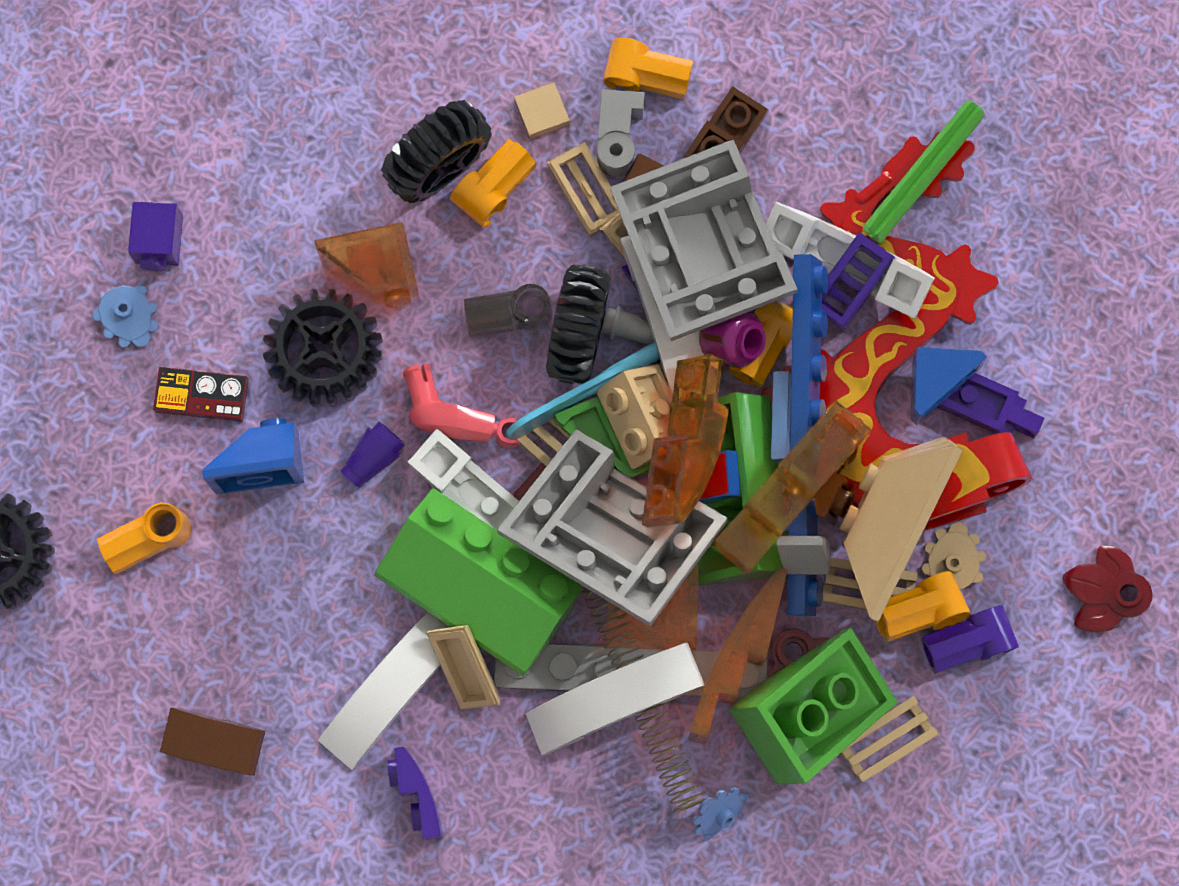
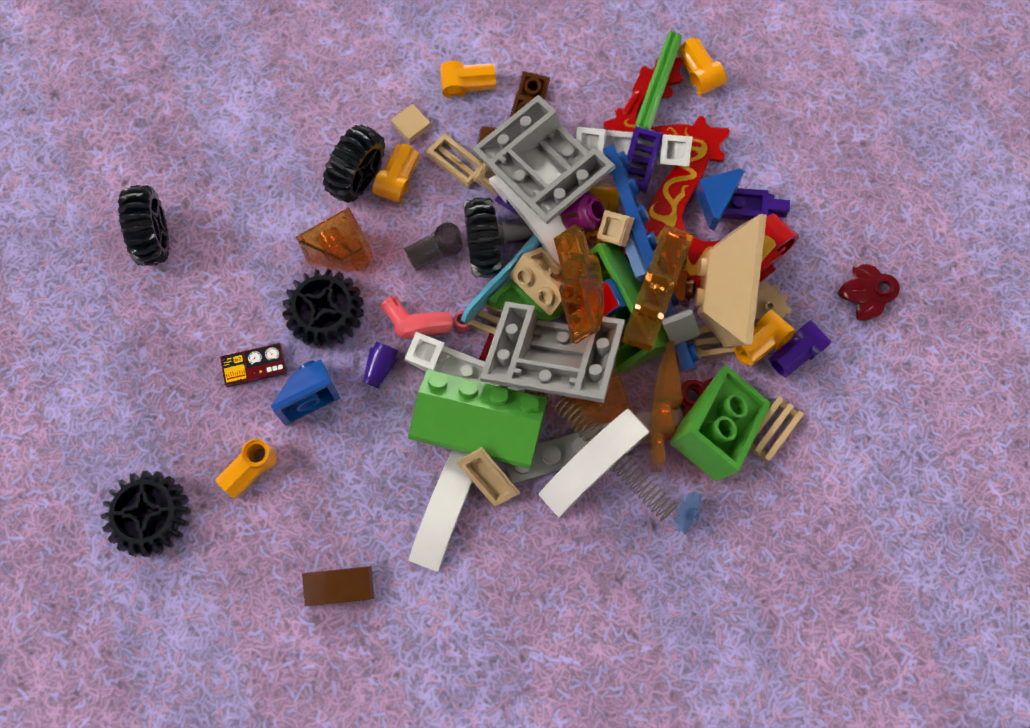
camera: 20 degrees left, 5 degrees down
(115, 145) = (143, 225): none -> black gear
(127, 315) = (188, 332): medium blue piece -> none
(155, 235) = (189, 274): dark purple brick -> none
(410, 780) = (480, 563): dark purple slope -> none
(614, 143) = (463, 126): light grey leg -> none
(769, 377) = (615, 228): none -> tan tile
(998, 172) = (703, 71): none -> light orange piece

